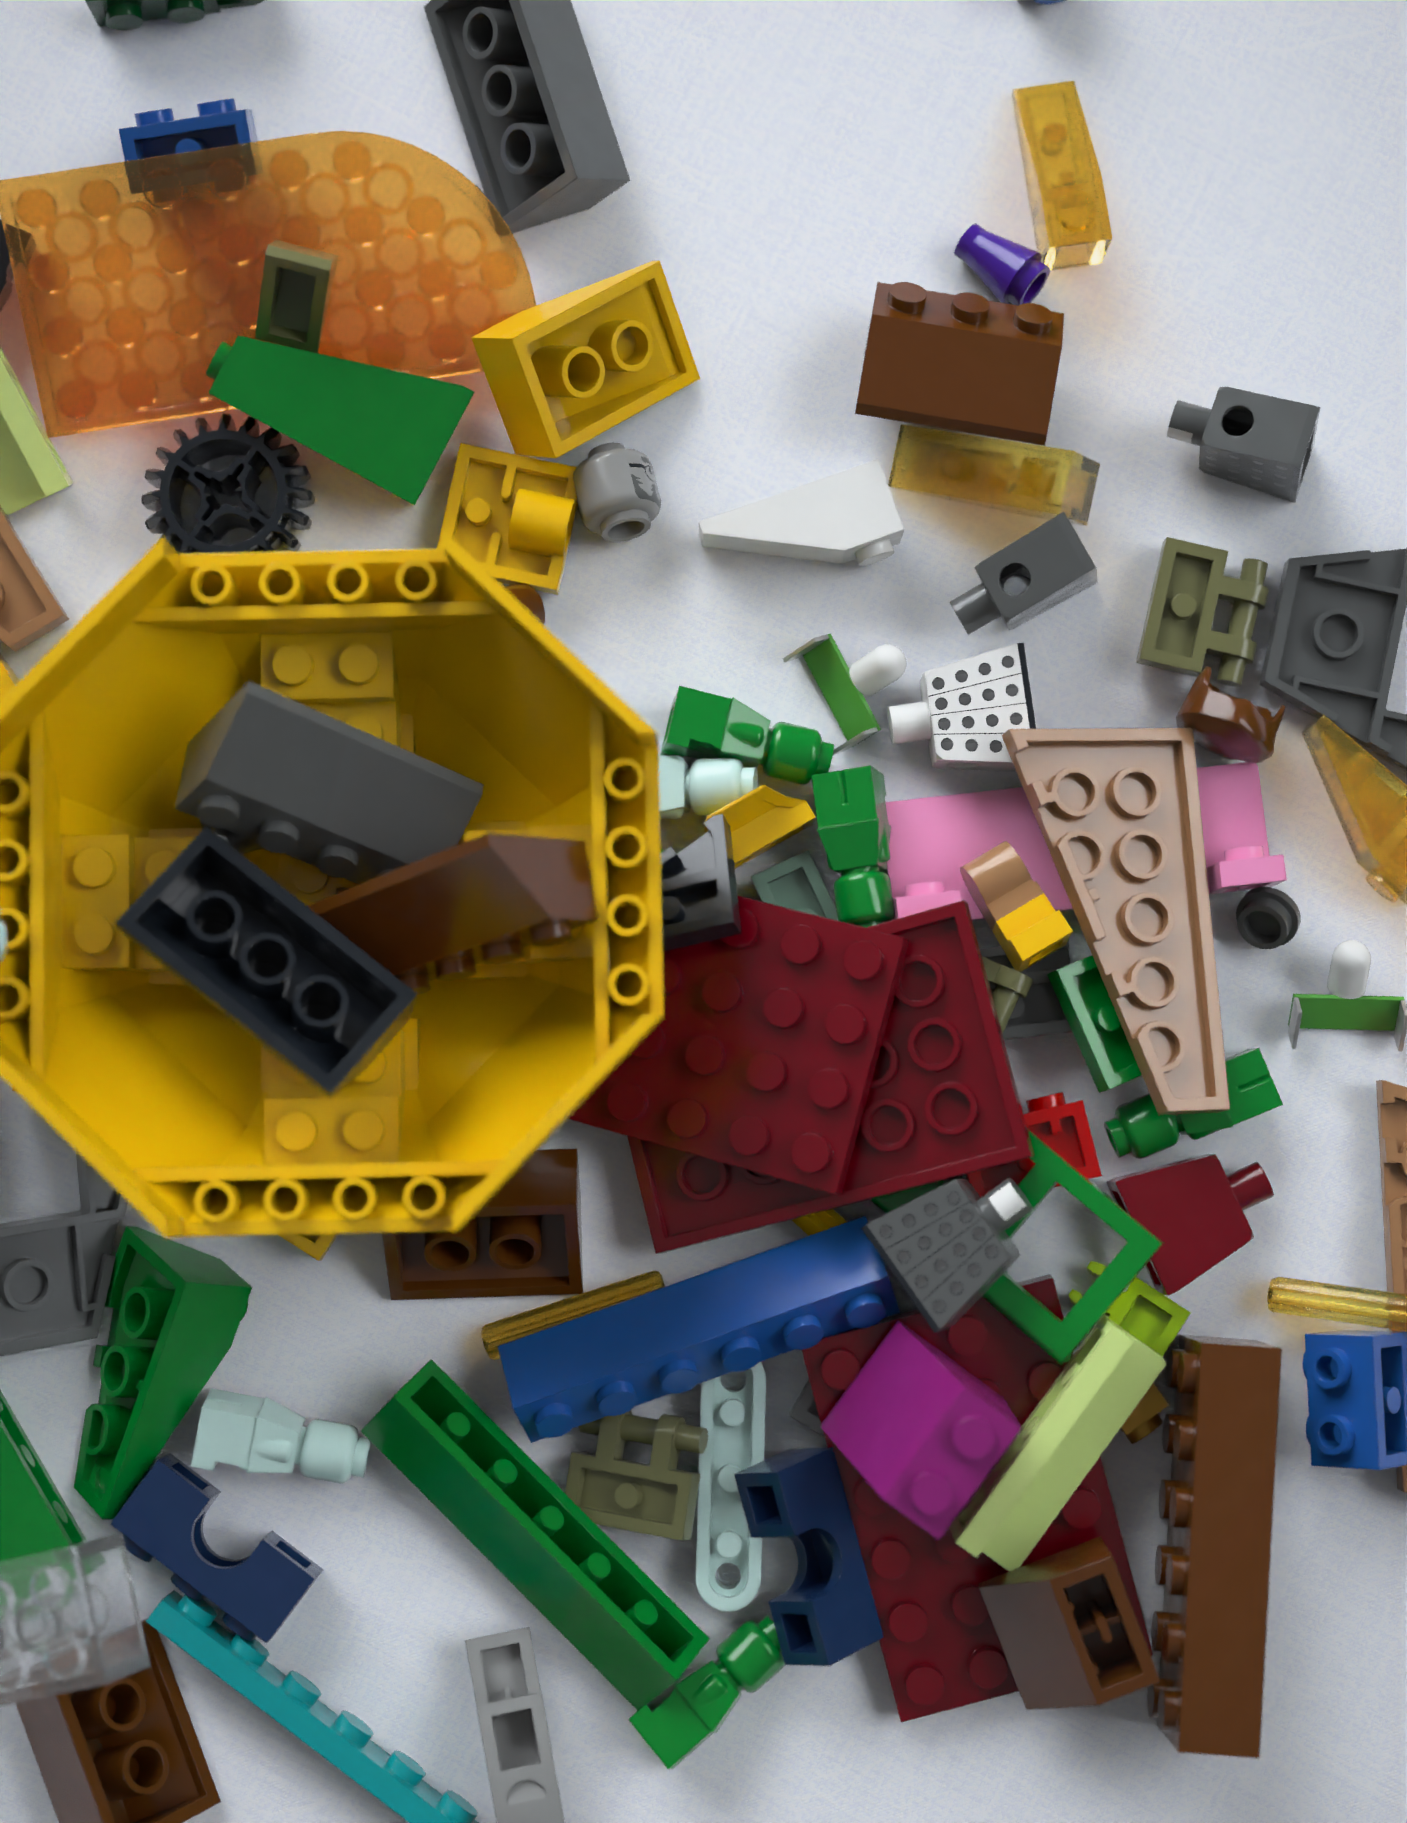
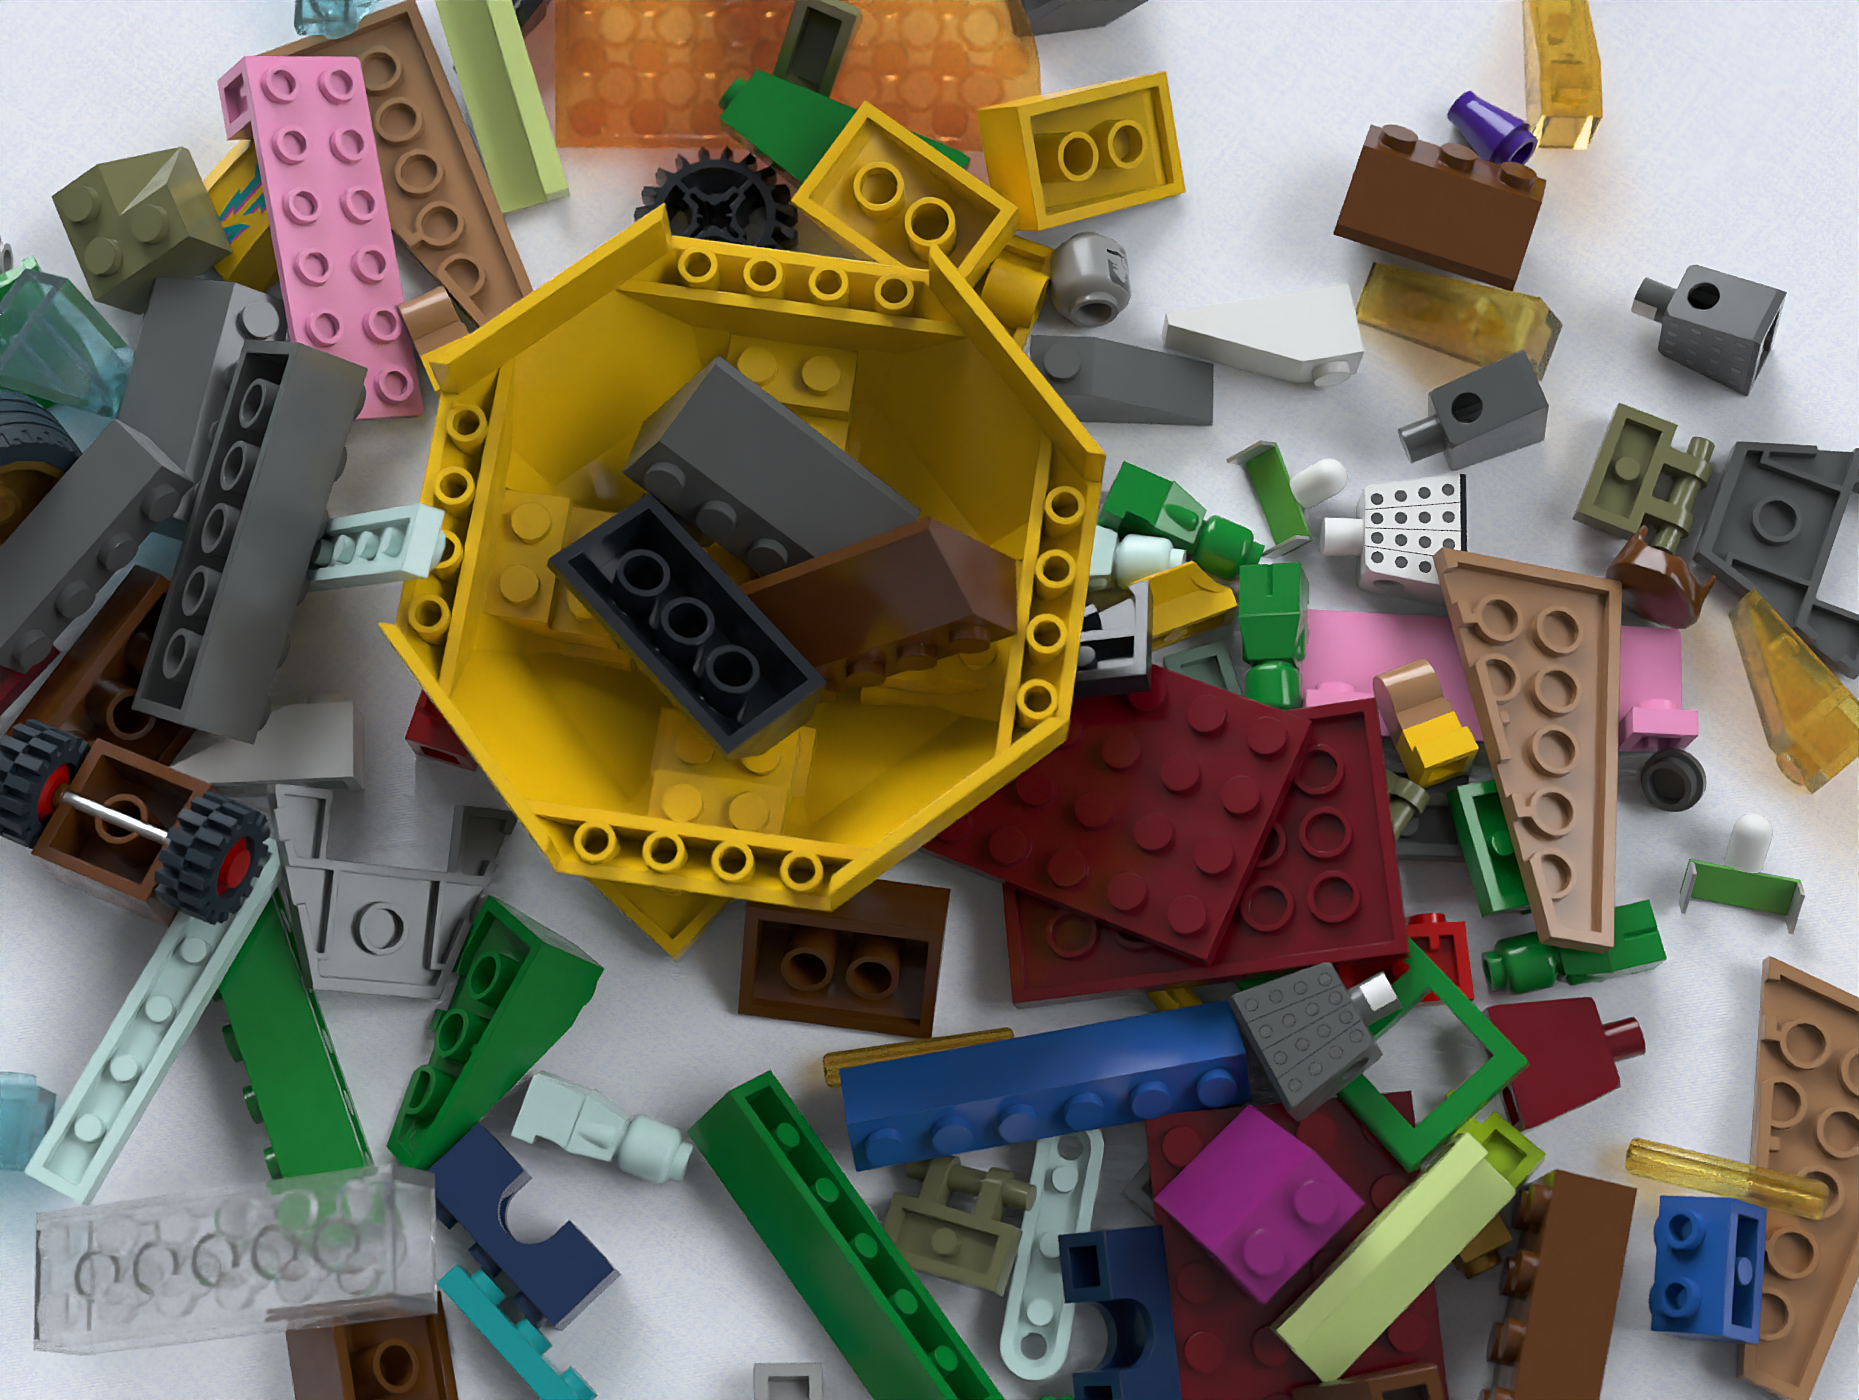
camera: 10 degrees right, 10 degrees down
(415, 462) = (893, 193): none -> yellow slope
(662, 598) = (1124, 382): none -> dark grey slope

